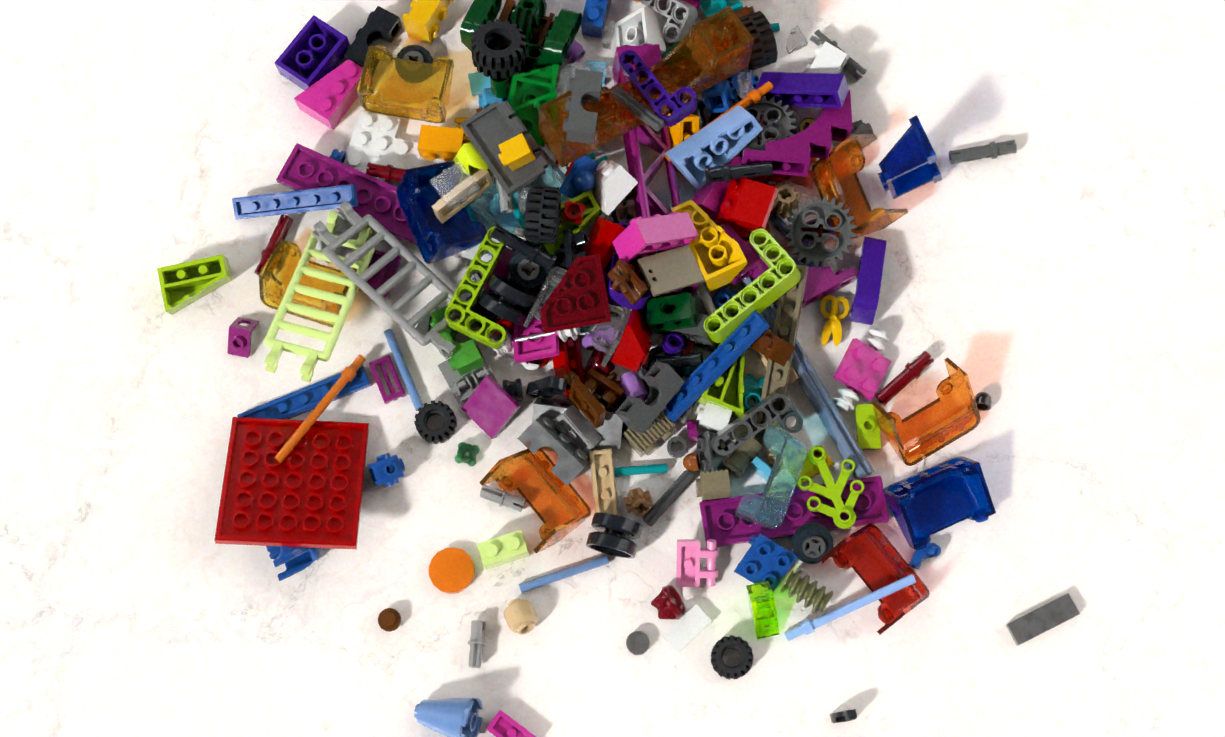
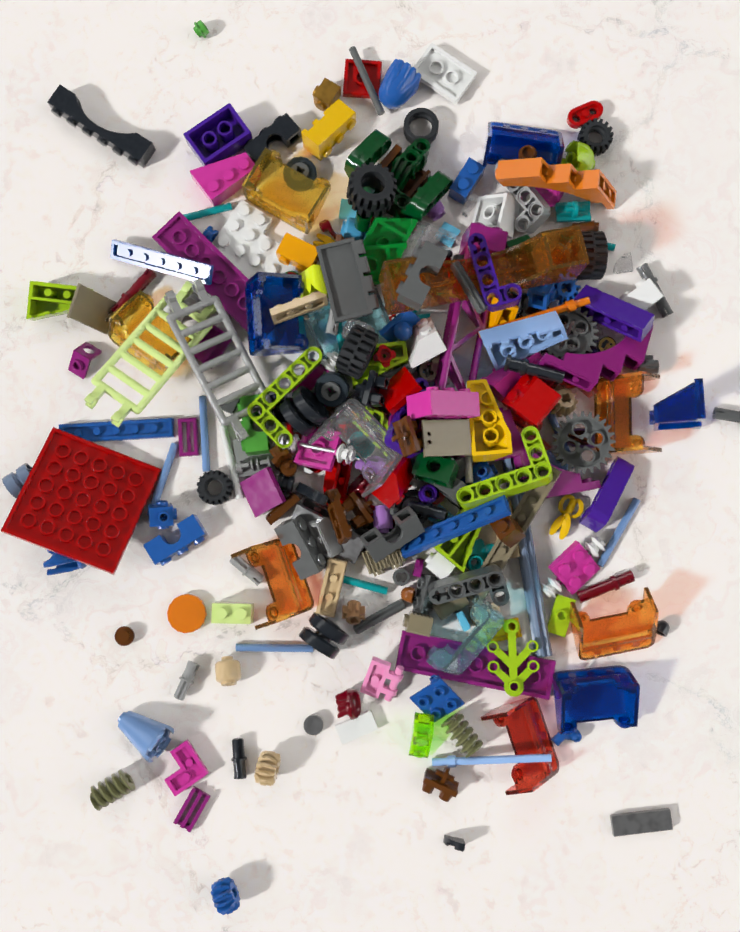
camera: 15 degrees right, 10 degrees up
(212, 489) = (15, 481): none -> sand blue wheel
(221, 95) = (132, 145): none -> black arch
(235, 276) = (91, 308): none -> dark tan container
(329, 134) = (208, 211): none -> teal bar
(346, 375) = (157, 423): orange bar -> none
(374, 427) = (164, 473): none -> medium blue bar
(387, 172) = (246, 263): dark red pin -> none
(402, 510) = (191, 533): none -> blue arch
(446, 393) = (231, 462): none -> white bar
(454, 185) = (294, 297): clear piece -> none
(461, 107) = (325, 225): none -> dark red hand
(462, 449) = (225, 523): clear green plate -> none
(502, 364) = (283, 461): none -> reddish brown hips
(516, 152) = (353, 289): yellow brick -> none
(518, 417) = (278, 511): none -> reddish brown tile
(532, 252) = (338, 381): black pin -> none
(566, 710) = (239, 758): none -> black axle
(578, 297) = (361, 433): dark red plate -> none
(603, 706) = (267, 768): none -> tan gear
(717, 657) = (392, 772): black tyre -> none
(744, 84) = (566, 293): clear pin -> none
(794, 654) = (442, 781): none -> reddish brown hips
(809, 551) = (480, 697): black wheel -> none
(896, 317) = (618, 532): none -> medium blue bar

